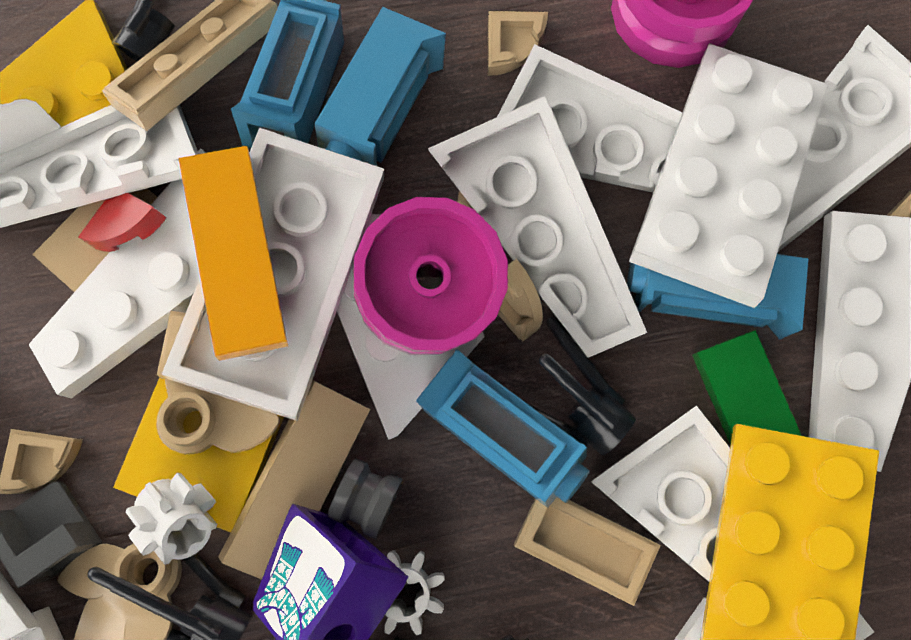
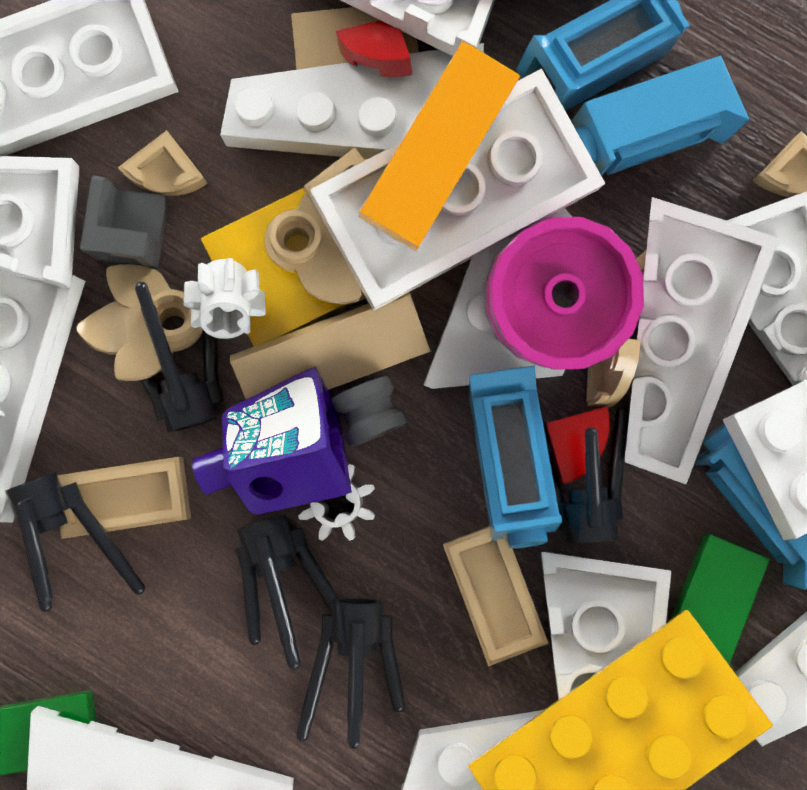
camera: 50 degrees right, 5 degrees up
(535, 381) = (568, 441): none -> red tile

